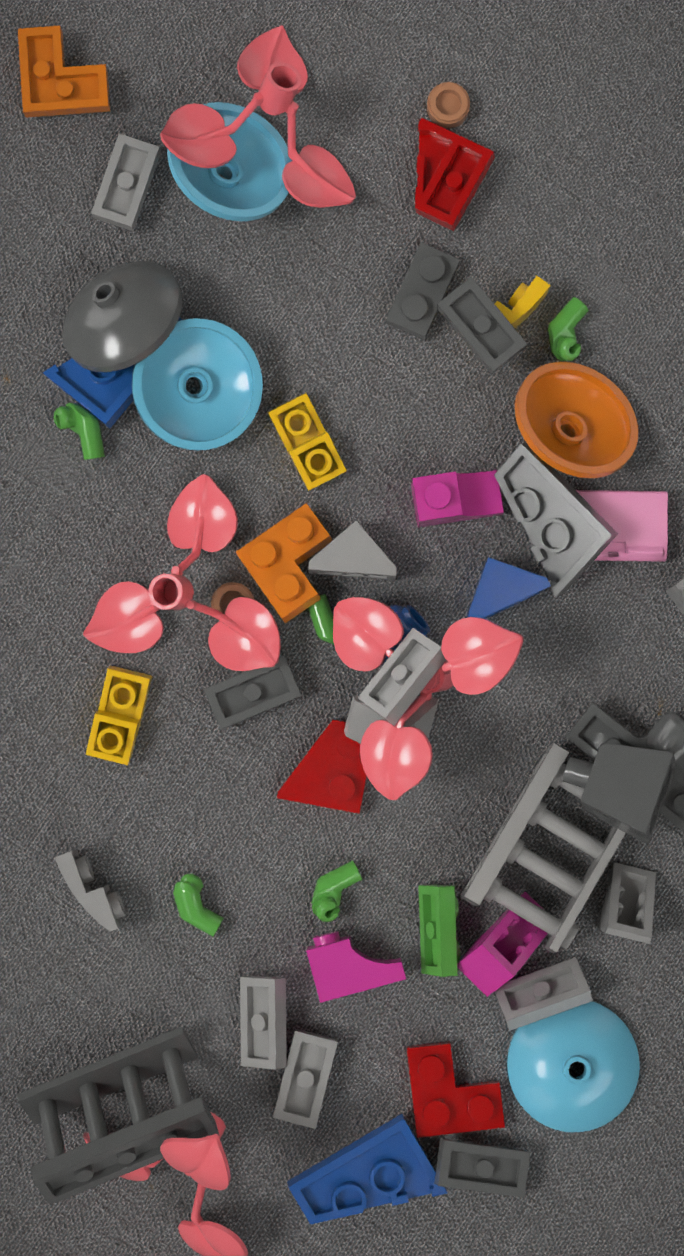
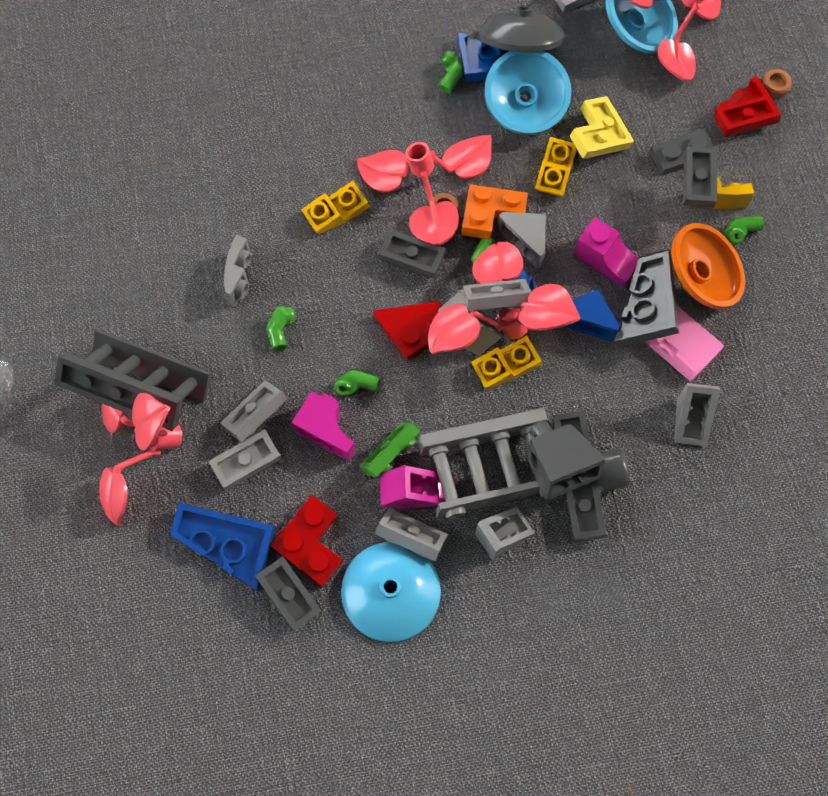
camera: 40 degrees right, 15 degrees down
(324, 346) = (605, 130): none -> light yellow plate
(463, 727) = (506, 364): none -> yellow slope

